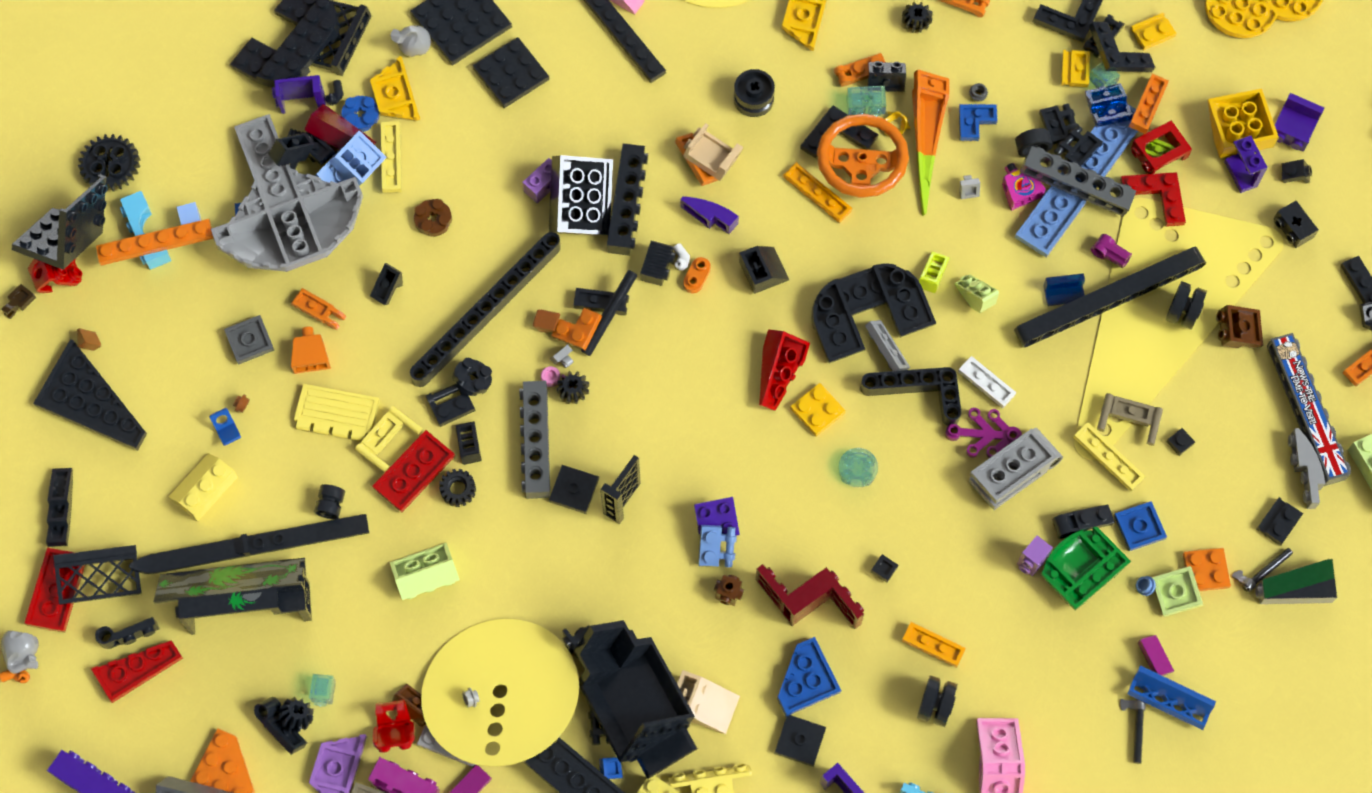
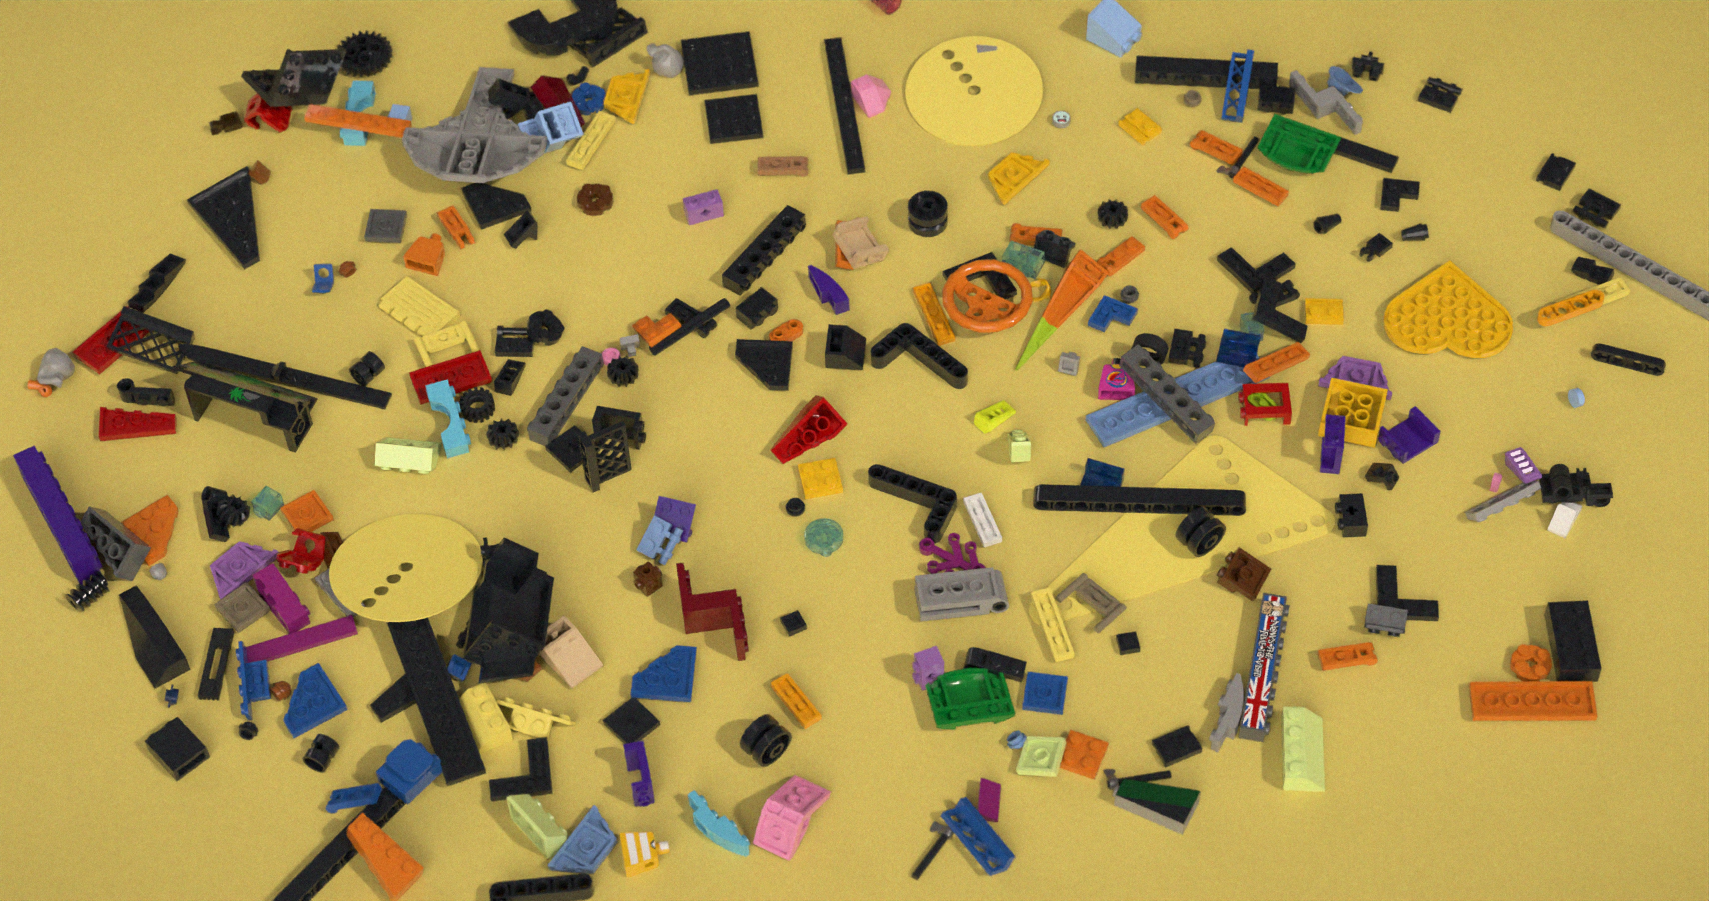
camera: 30 degrees right, 15 degrees down
(203, 486) = (277, 317): light yellow slope -> none
(298, 89) = (546, 57): dark purple panel -> none
(341, 268) = (493, 204): none -> black plate
(366, 681) = (307, 512): none -> orange plate
(423, 500) = (441, 399): none -> medium azure arch
(470, 698) = (377, 558): light grey plate -> none
(484, 317) = (590, 283): black beam -> none
(510, 507) = (502, 434): none -> black gear
(546, 321) = (634, 312): dark orange slope -> none
(580, 195) = (725, 227): black slope -> none
(588, 102) = (783, 165): none -> medium nougat plate
(609, 445) = (606, 417): none -> black panel
(683, 257) = (784, 313): white arm -> none
(699, 313) = (767, 361): none -> black plate
(814, 450) = (795, 507): none -> black plate
(834, 239) = (909, 339): none -> black beam
(861, 292) = (917, 403): black plate -> none
(887, 346) = (912, 452): light grey plate -> none
(948, 55) = (1121, 255): none -> orange plate
(1075, 68) = (1229, 310): yellow plate -> none
(1083, 149) = (1189, 373): black plate -> none
(1107, 248) = (1164, 464): magenta piece -> none
(1169, 189) = (1250, 435): red plate -> none
(1218, 82) = (1357, 371): none -> medium lavender wing

